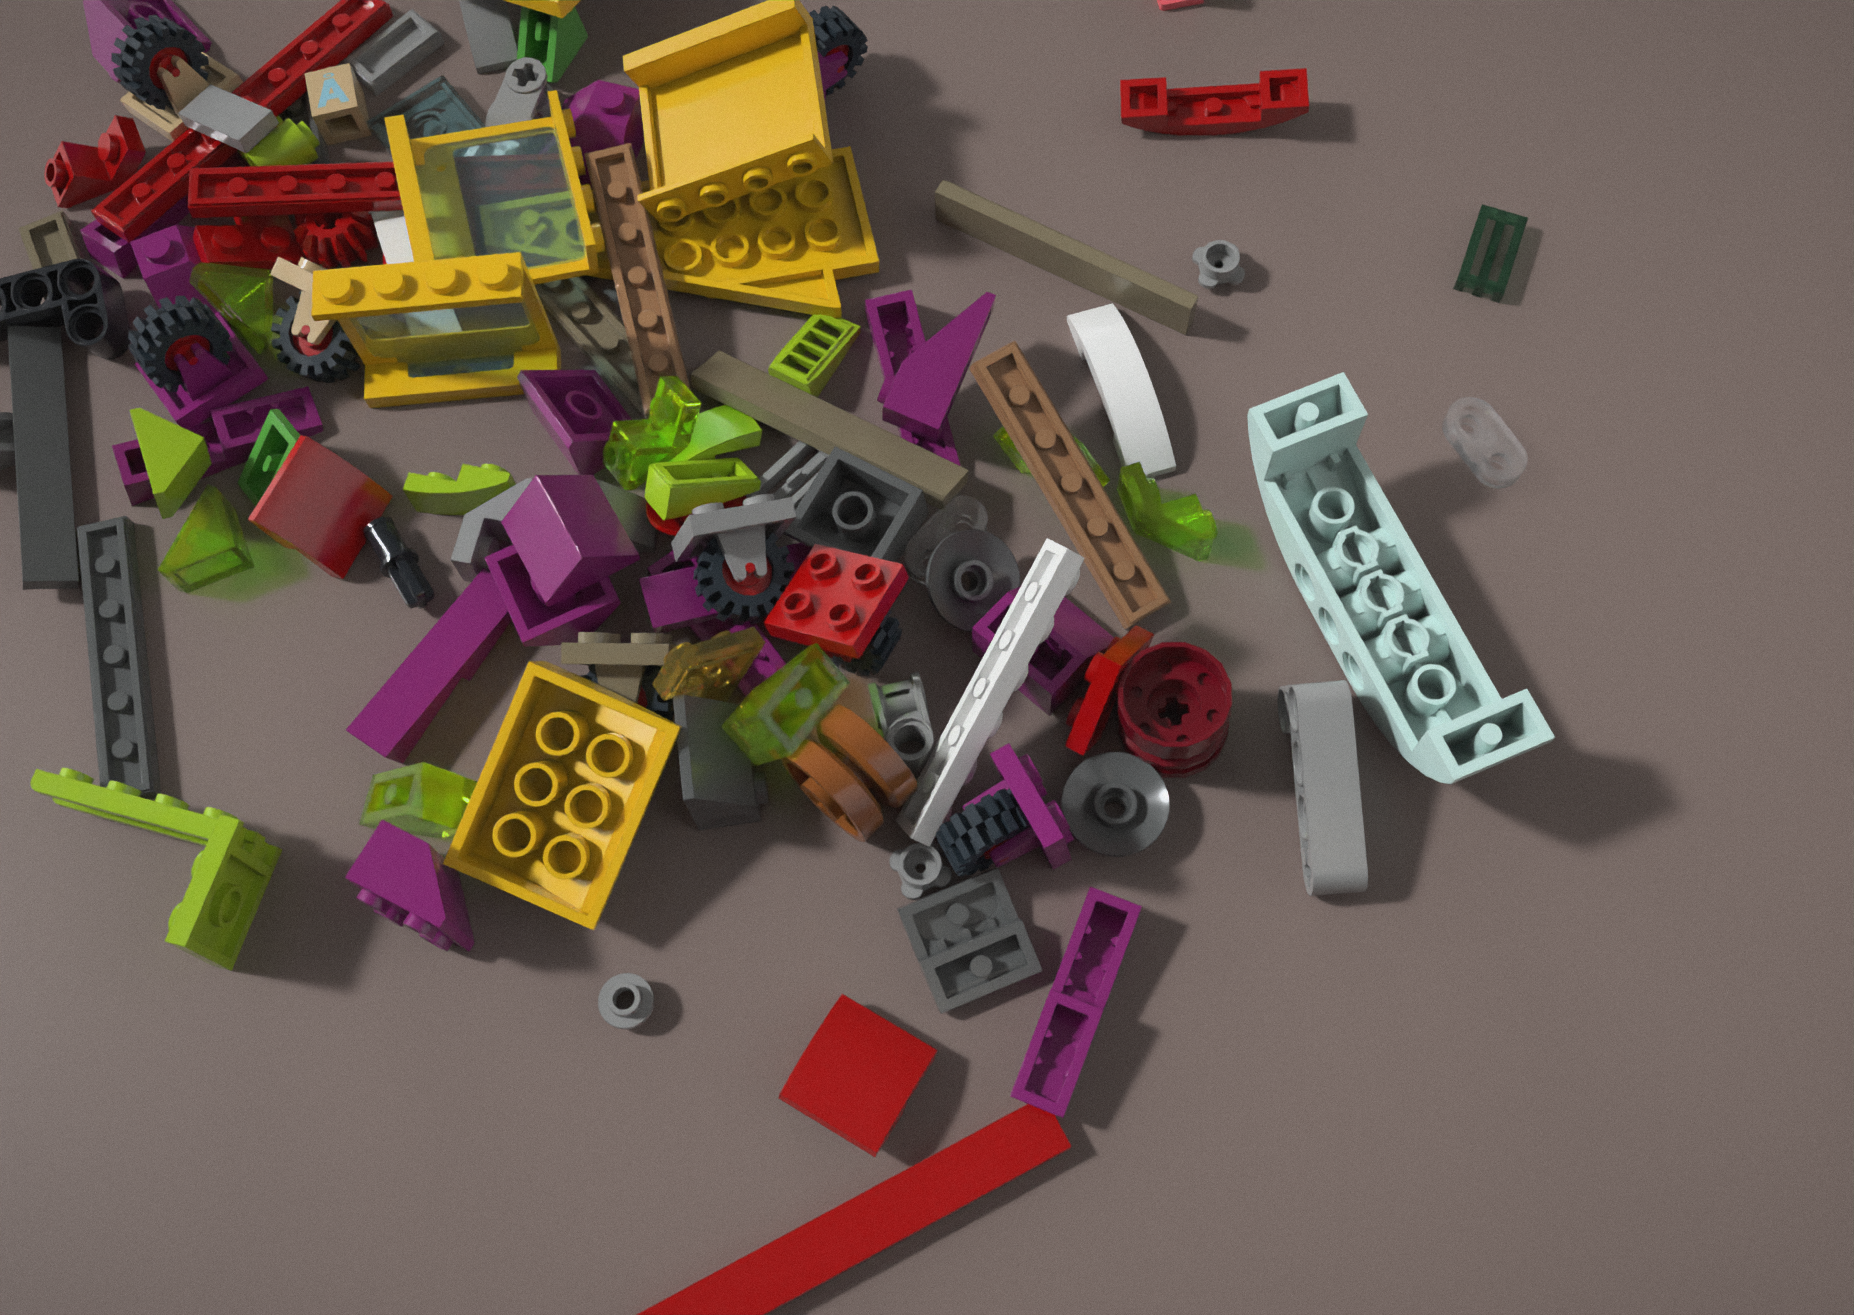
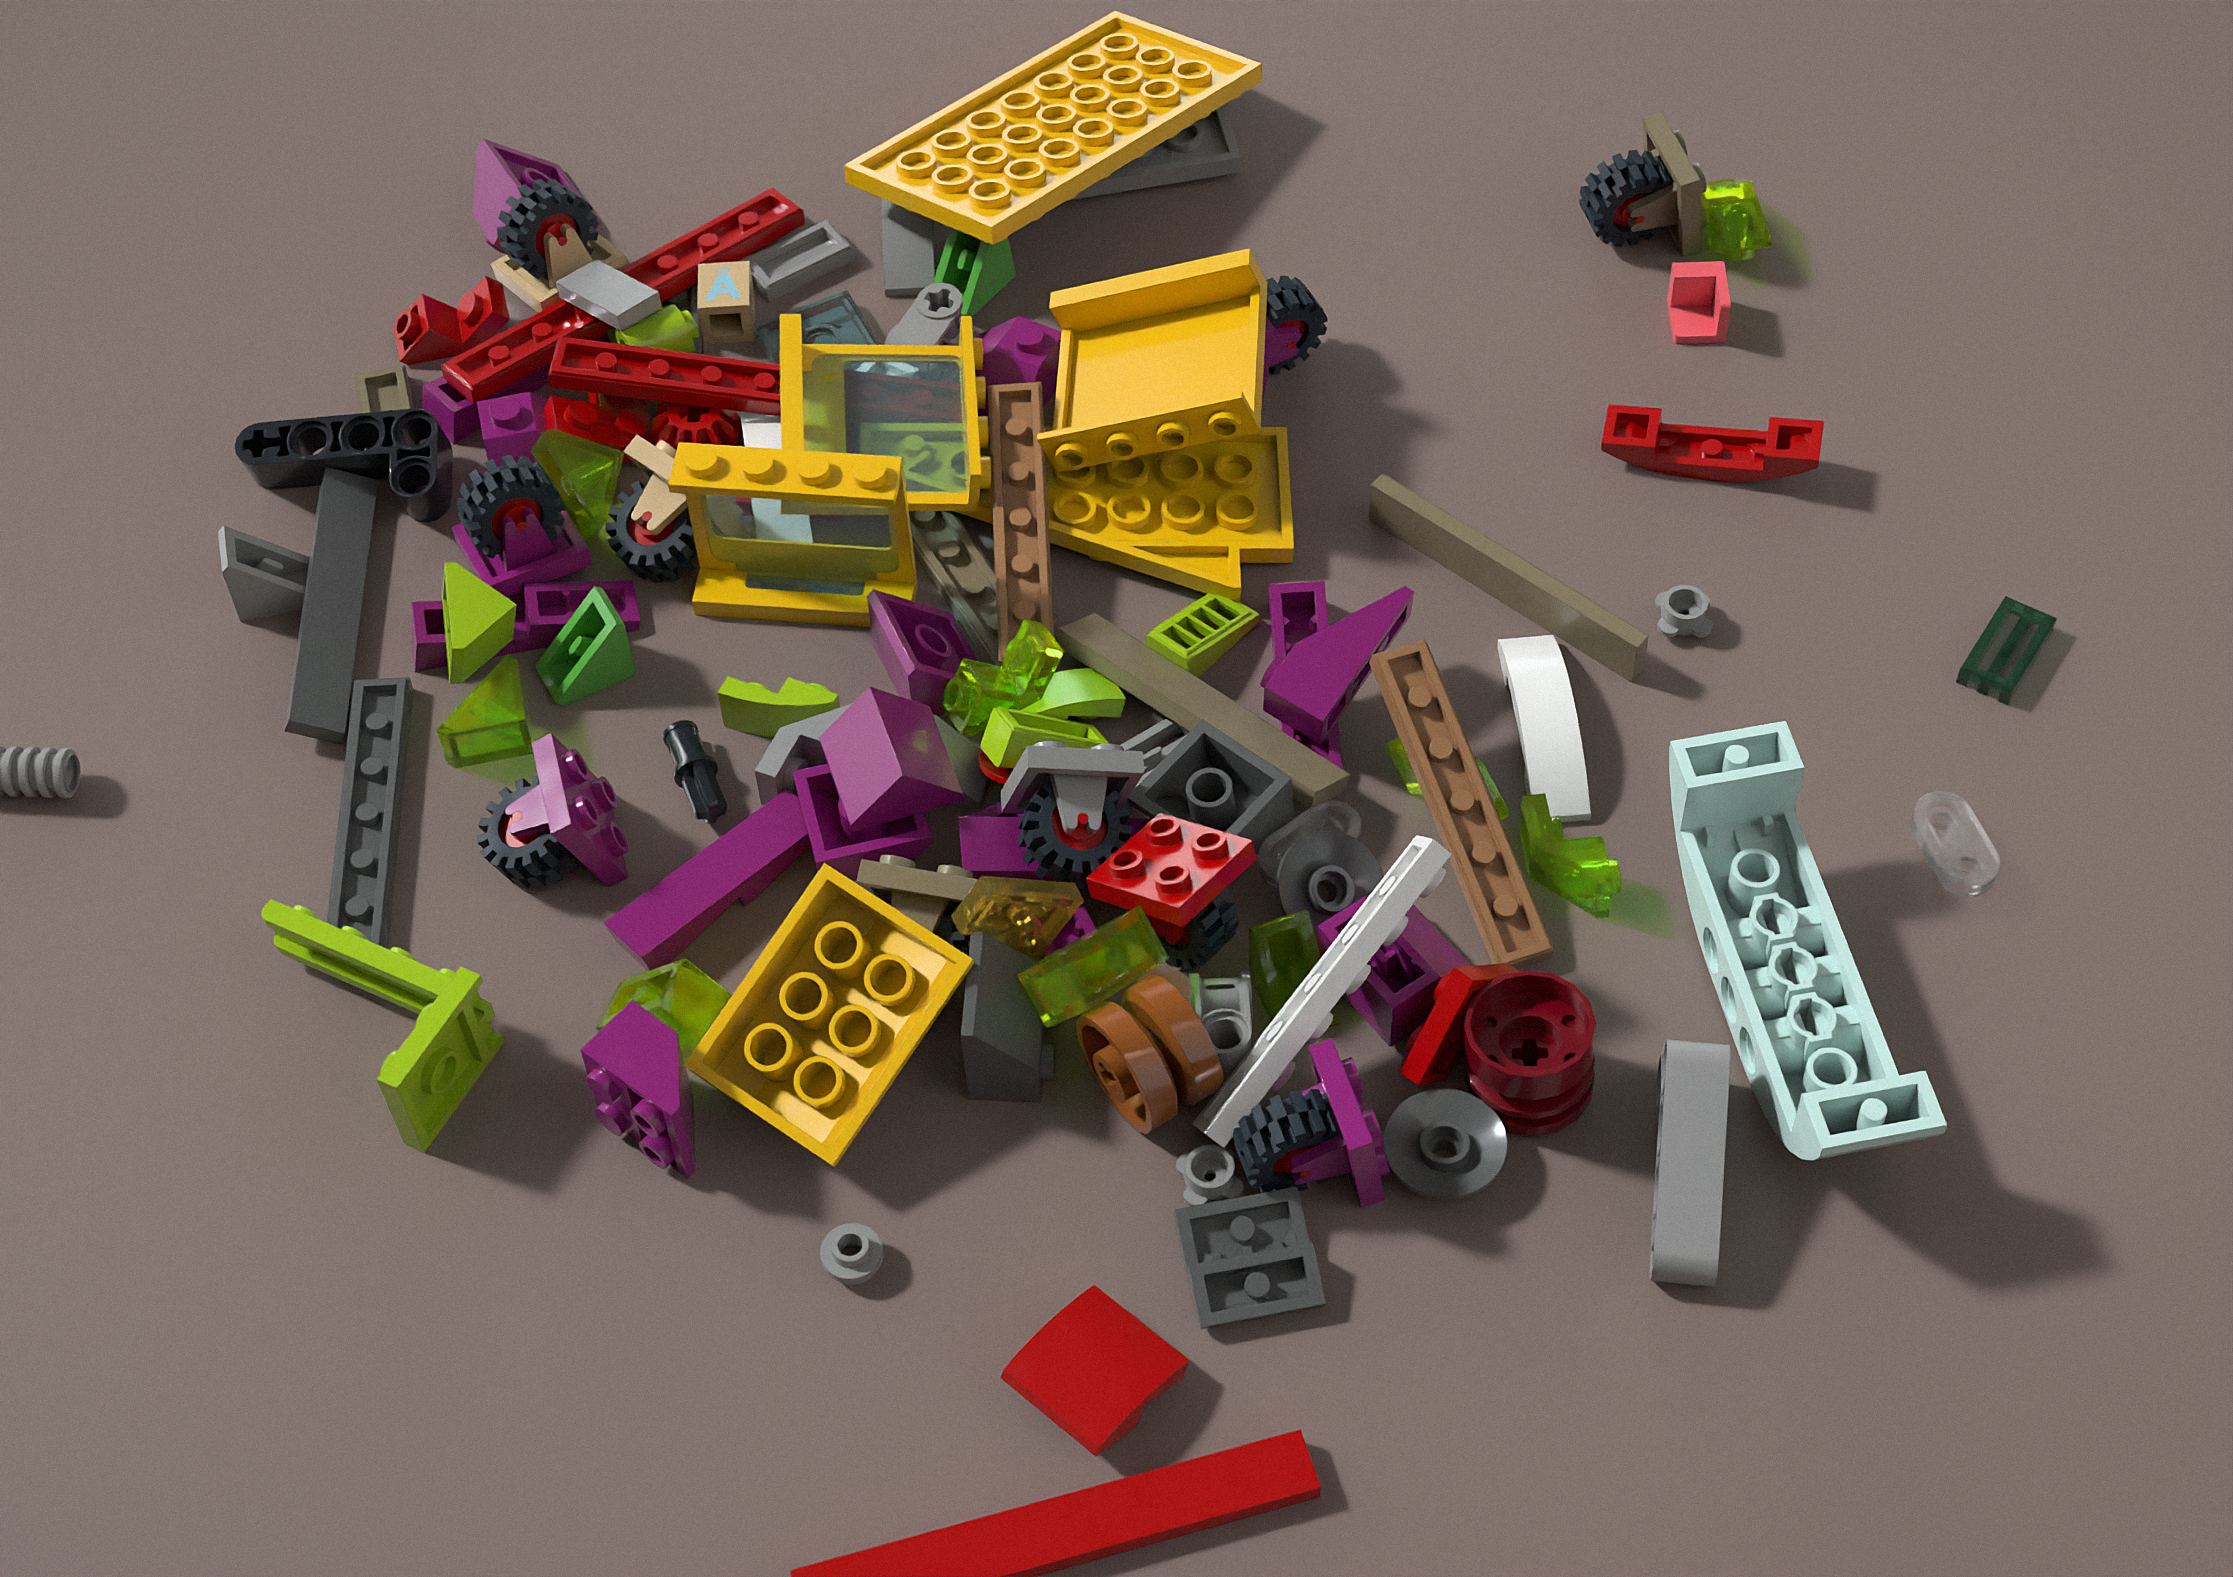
camera: 10 degrees right, 15 degrees down
(283, 639) = (553, 820): none -> magenta plate
(320, 506) = (624, 696): red slope -> none
(947, 661) = (1281, 958): none -> clear neon green slope
(1076, 1002) = (1358, 1337): magenta slope -> none

